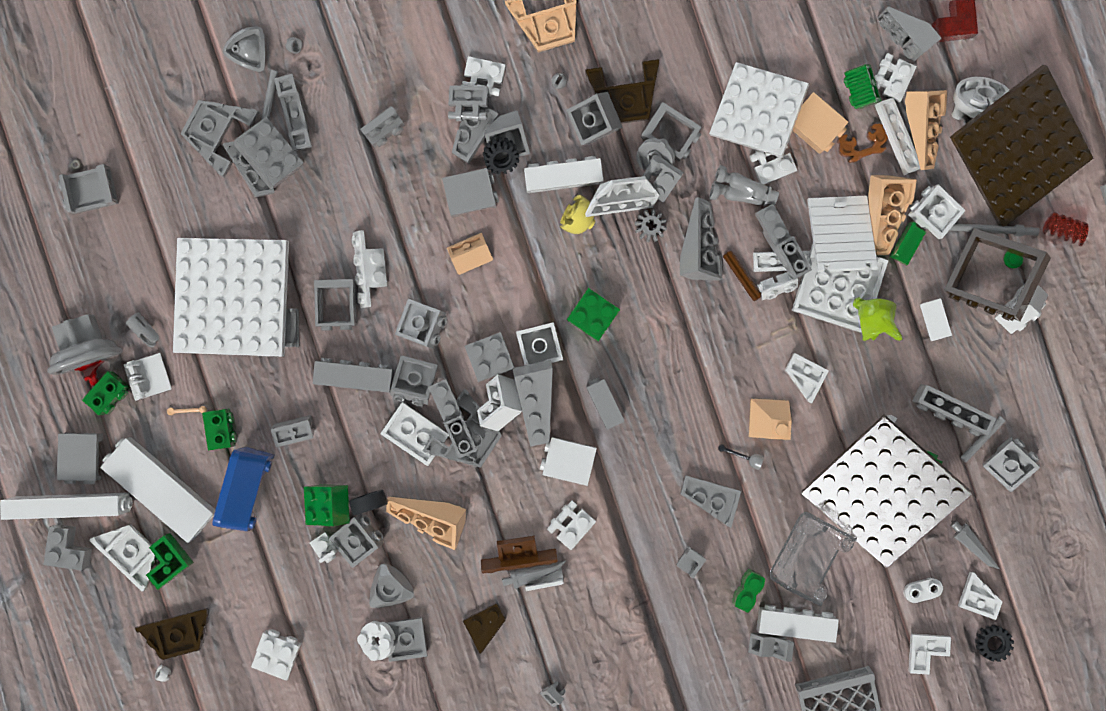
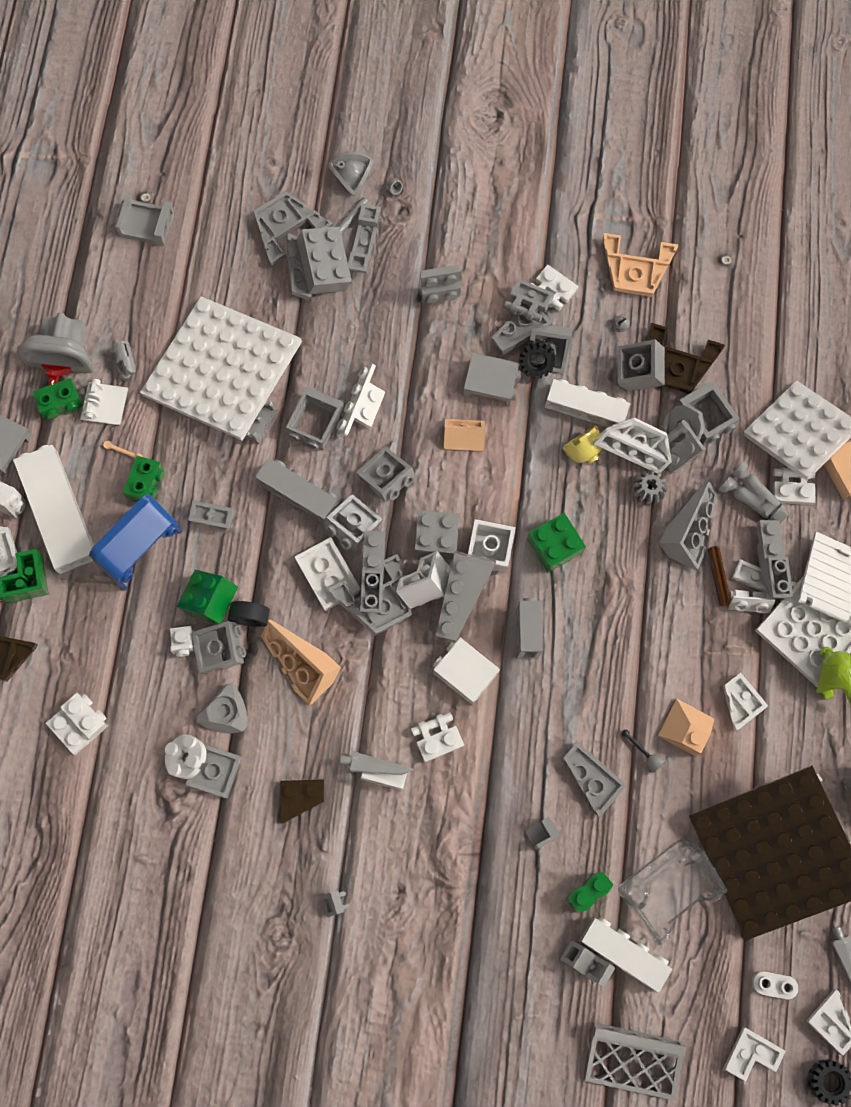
camera: 20 degrees right, 15 degrees down
(518, 554) = (370, 738): reddish brown bracket -> none

